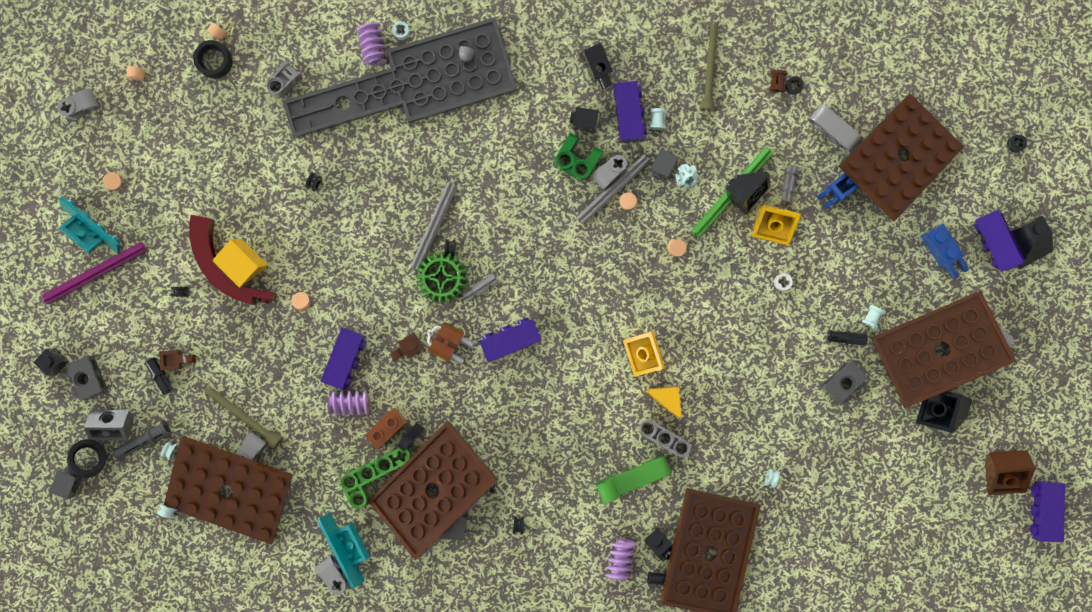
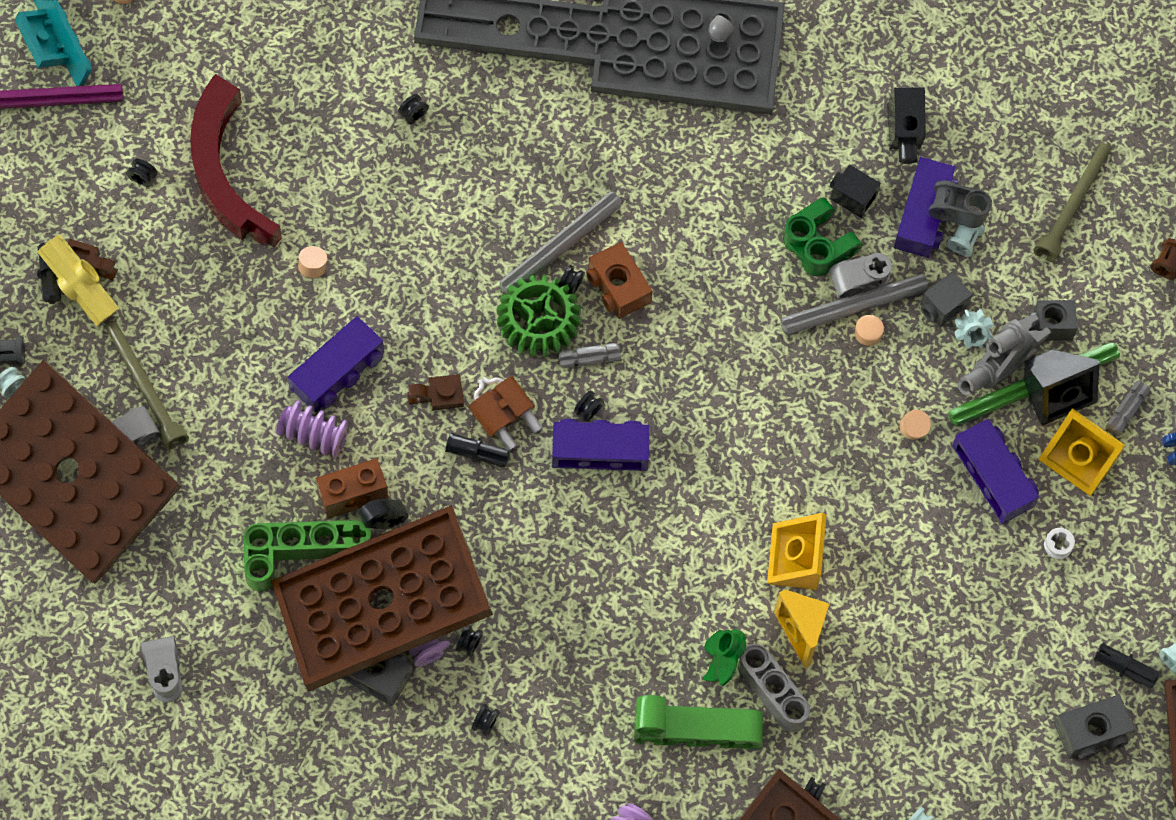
camera: 15 degrees right, 20 degrees down
(176, 376) = (78, 279): none -> light yellow piece
(239, 262) = (251, 166): yellow slope -> none
(346, 547) = (205, 635): teal bracket -> none
(444, 372) = (477, 450): none -> black axle
(471, 226) = (618, 264): none -> dark orange brick
(493, 319) = (588, 406): none -> black bush
(632, 430) = (726, 649): none -> green plate
(645, 106) = (958, 204): none -> dark grey piece
(709, 486) = (815, 789): none -> black bush
(710, 186) = (1004, 354): none -> light grey connector
(733, 256) = (996, 470): none -> dark purple brick
(735, 145) = (1063, 312): none -> dark grey brick

